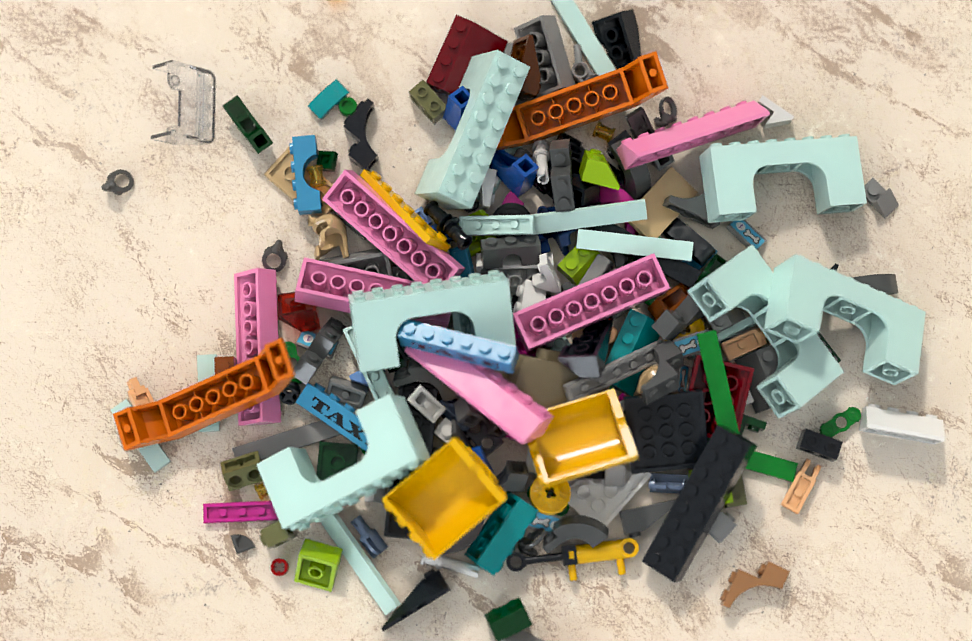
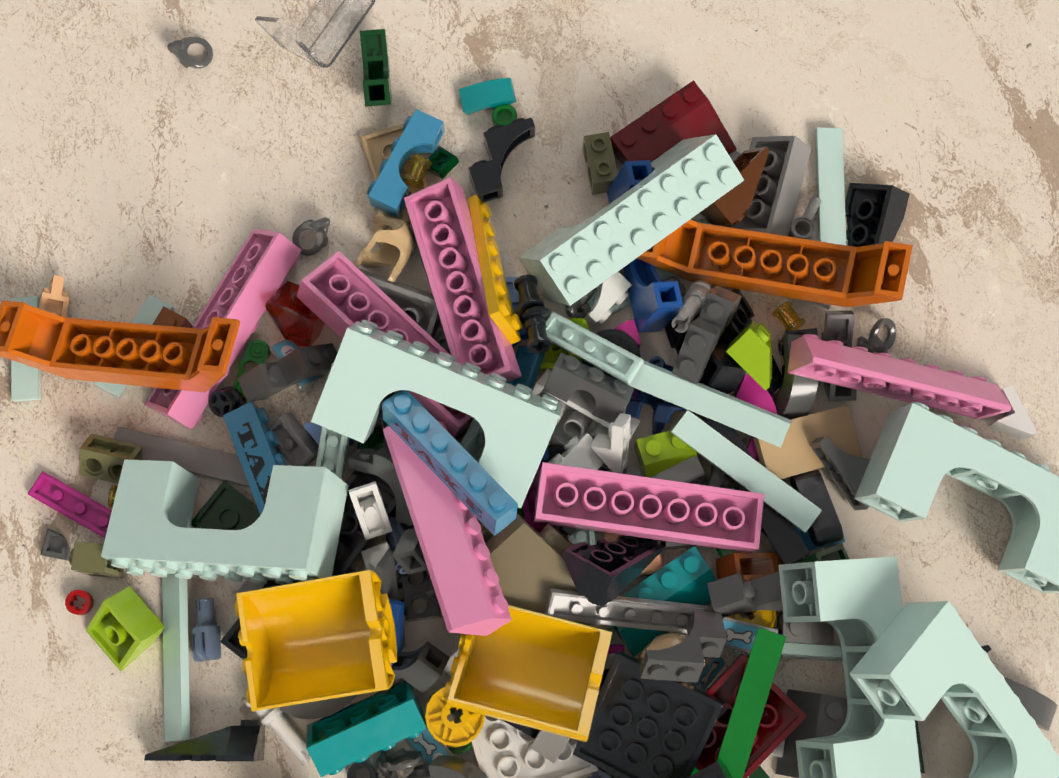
camera: 30 degrees right, 5 degrees down
(743, 344) = (811, 676): light nougat hinge -> none
(746, 234) = (893, 540): slope -> none

